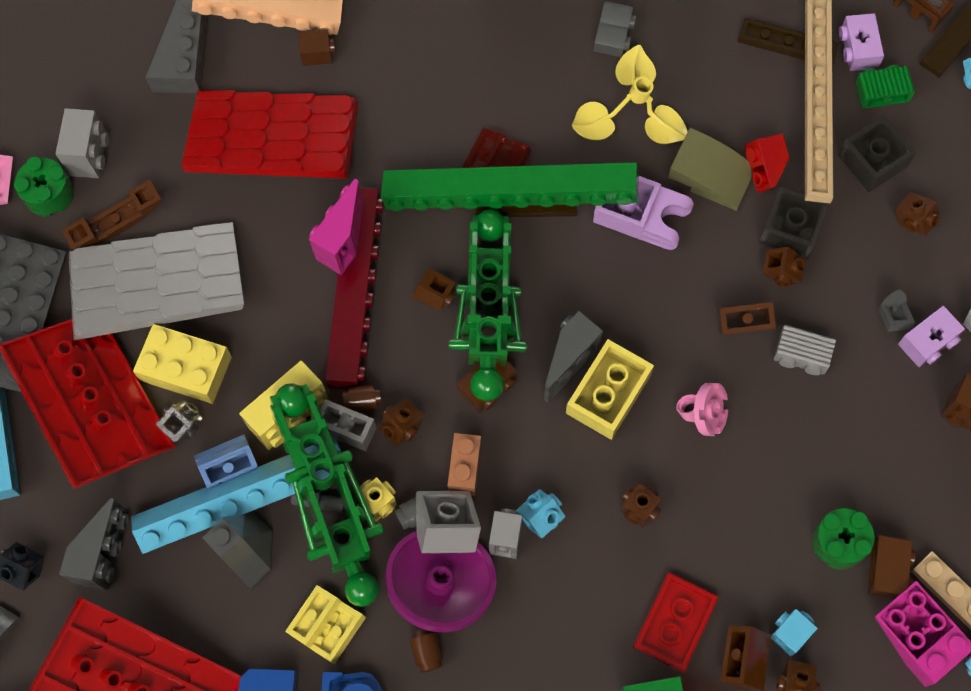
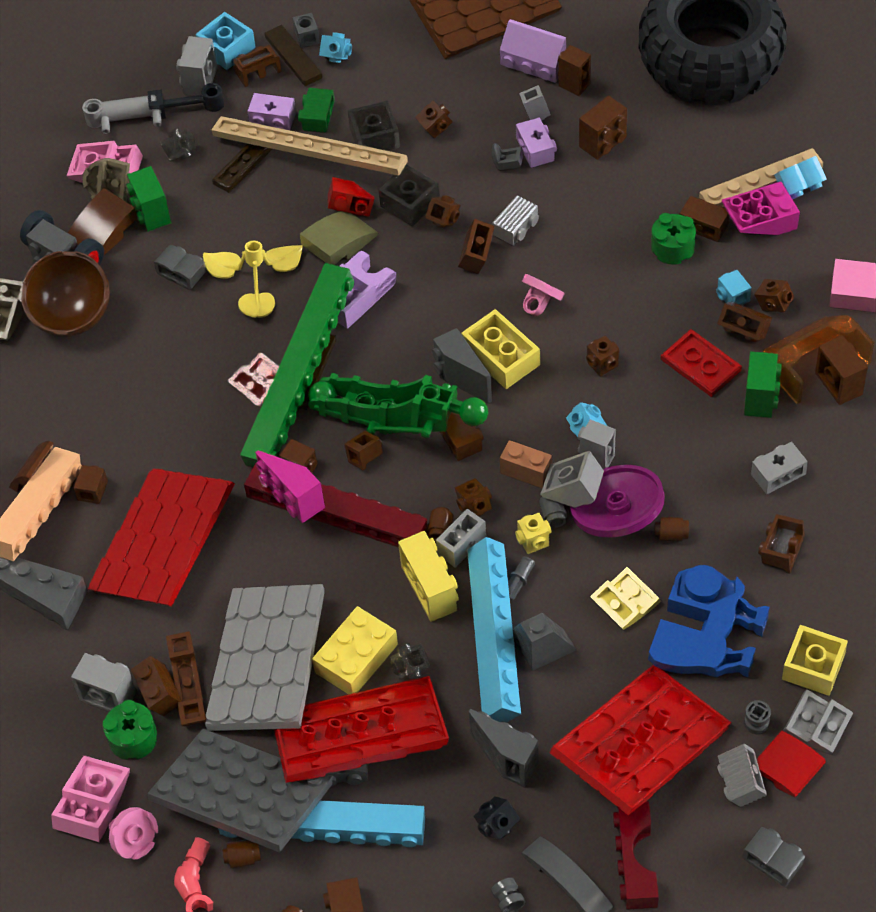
camera: 70 degrees left, 15 degrees down
(96, 191) = (156, 686): none -> reddish brown brick
(225, 461) = (459, 634): medium blue brick -> none
(292, 401) = (517, 547): green piece -> none
(403, 230) = (300, 454): none -> reddish brown brick

